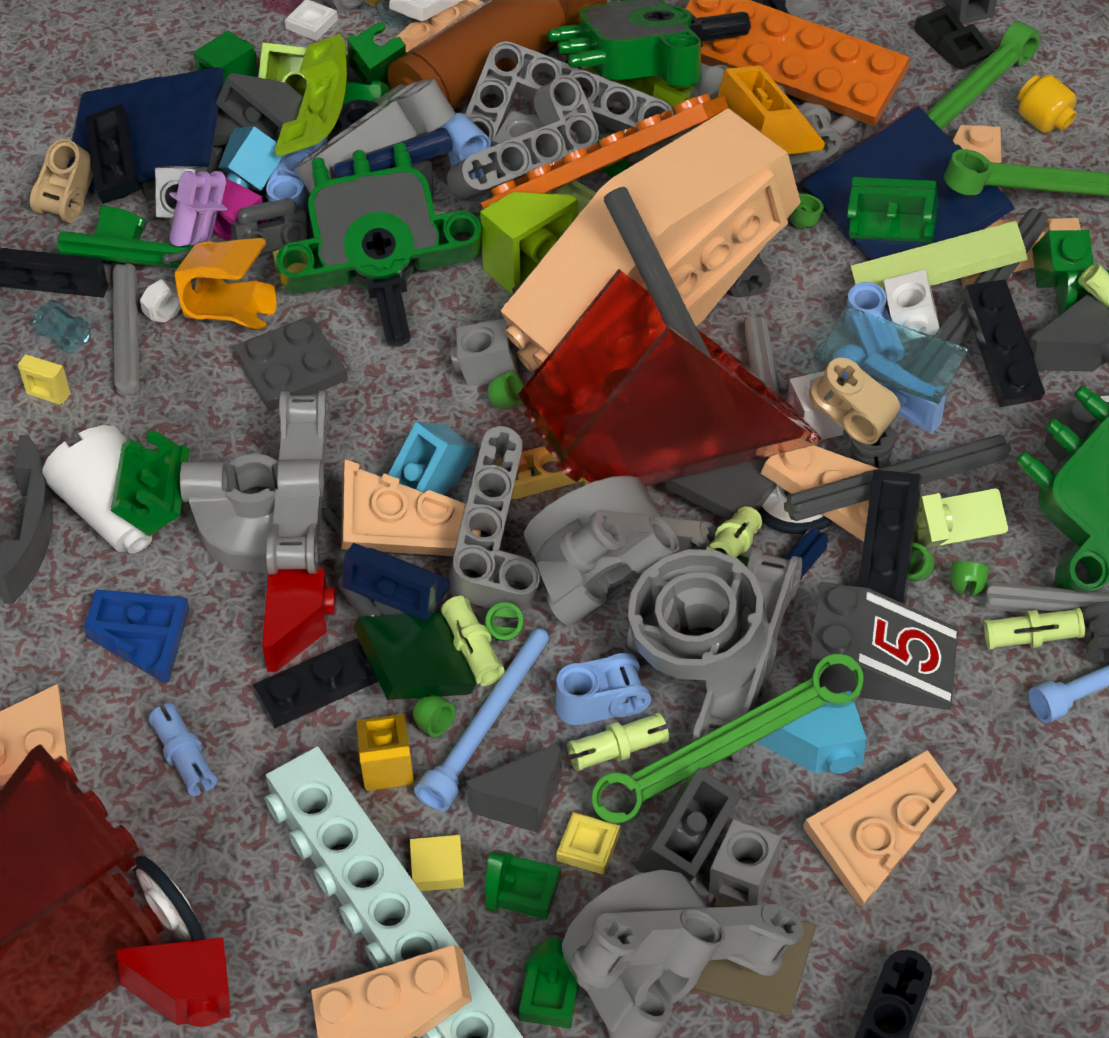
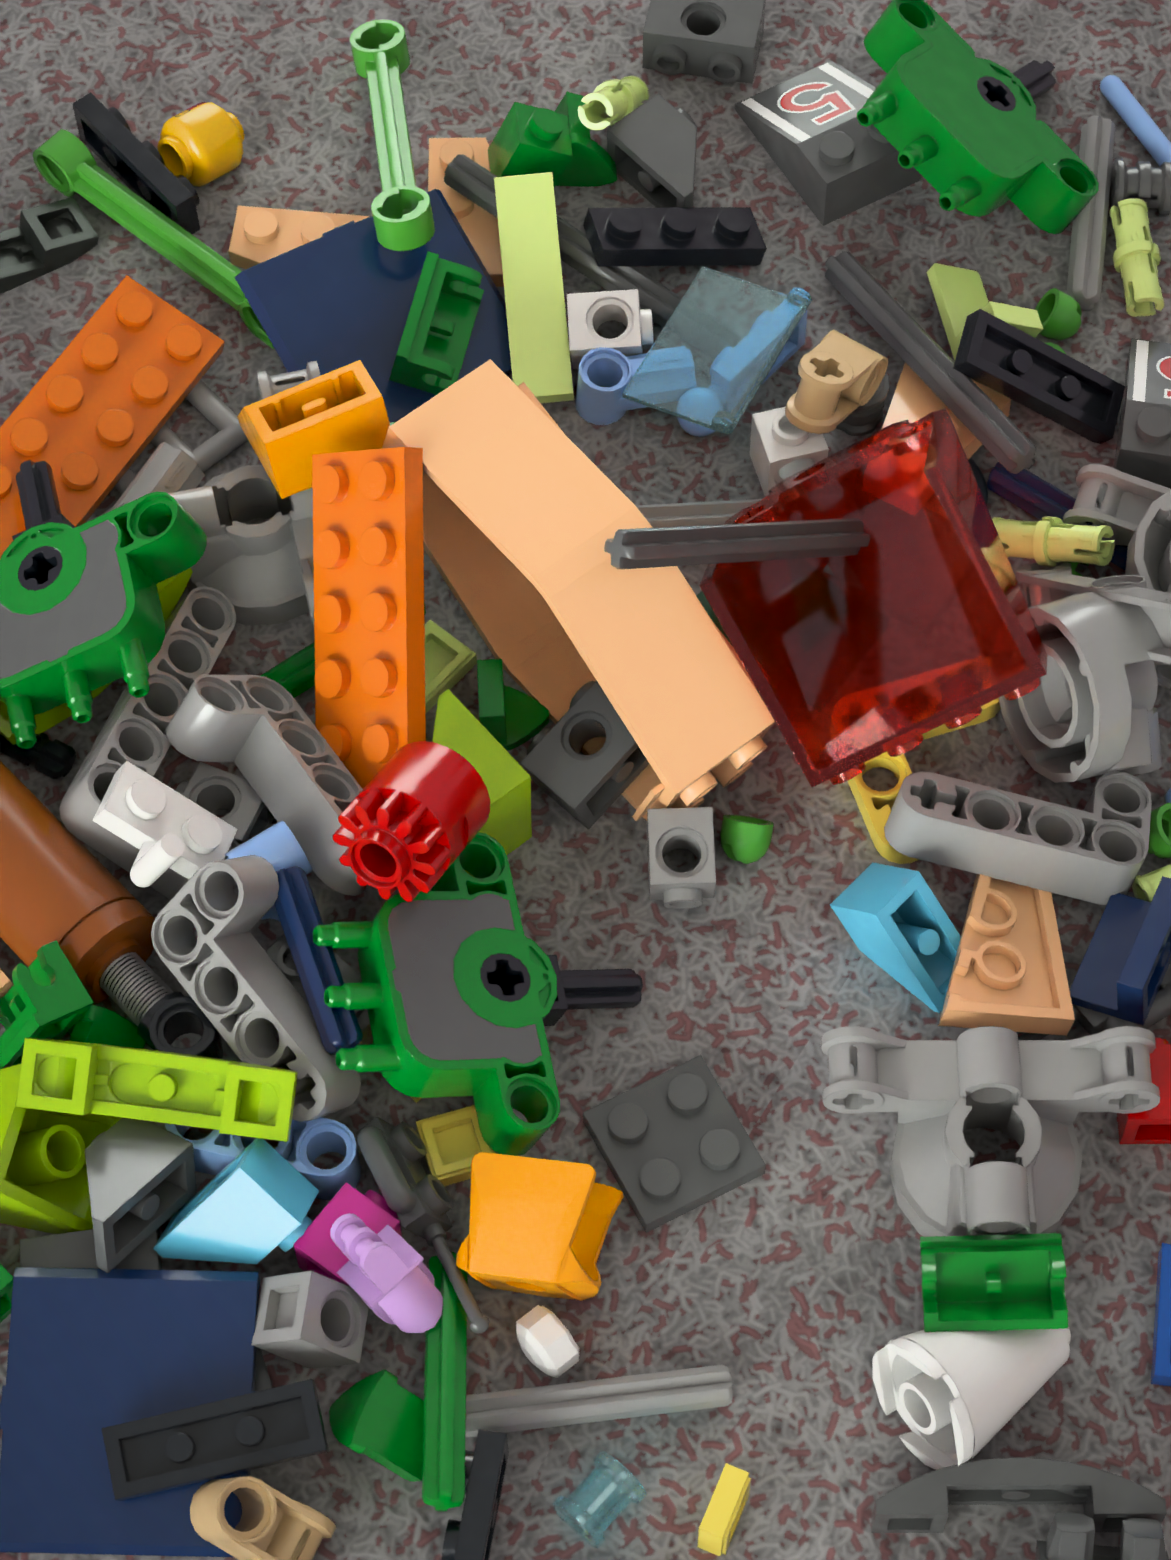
camera: 90 degrees left, 10 degrees up
(462, 166) = (413, 820): none -> red gear
(482, 85) = (161, 825): none -> white plate
(1004, 85) = (135, 162): none -> black plate

